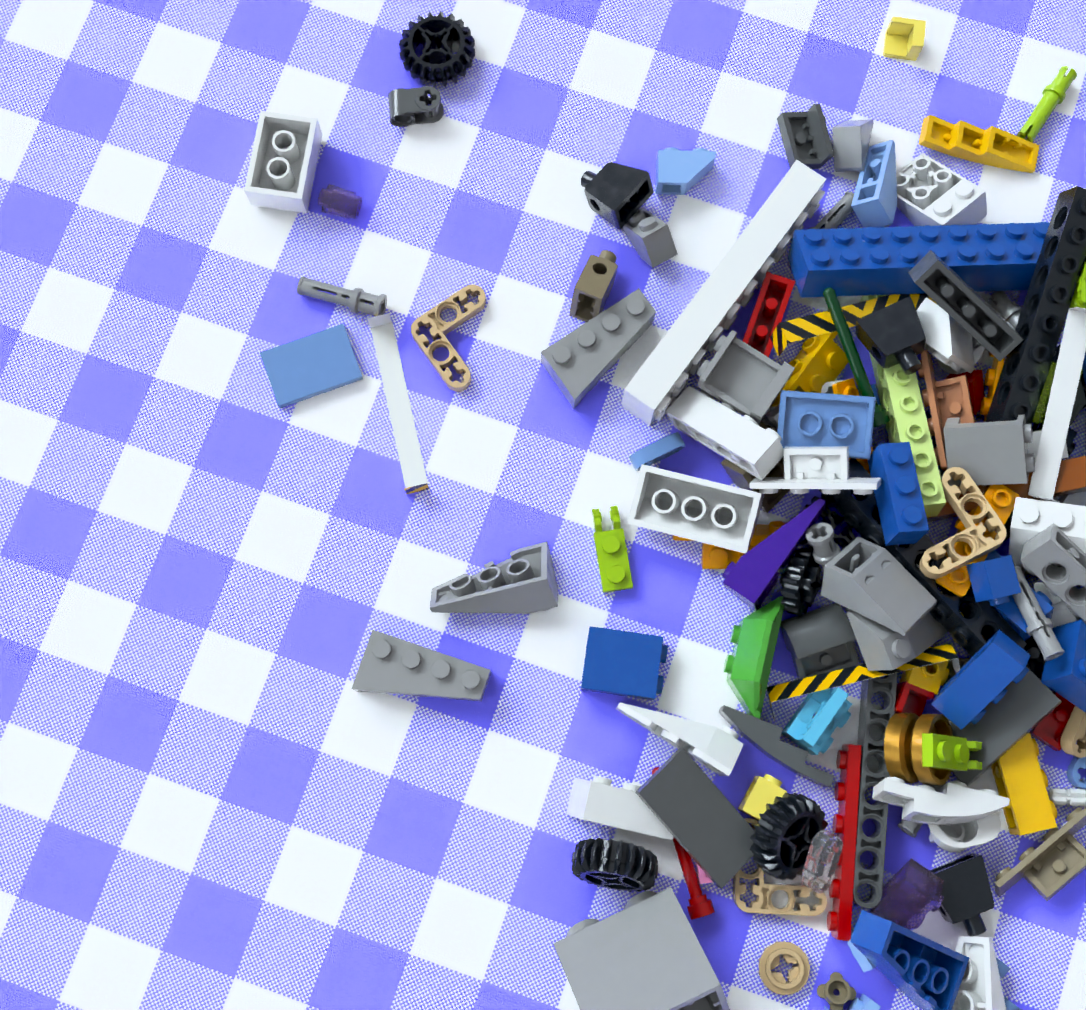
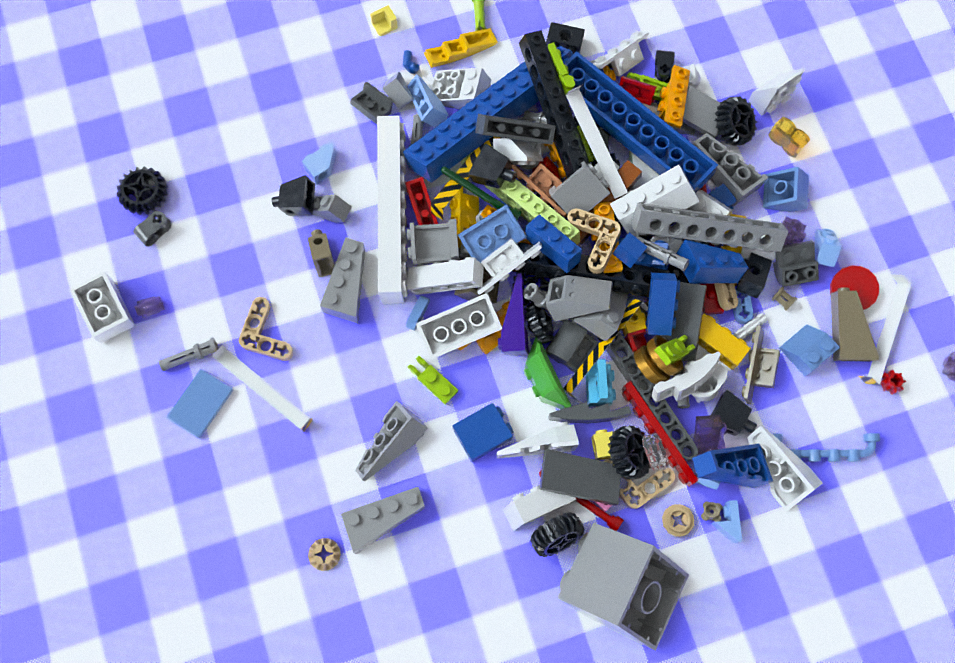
camera: 40 degrees left, 5 degrees down
(333, 659) = (331, 560): none -> tan gear
(892, 120) = (407, 63): none -> blue arm

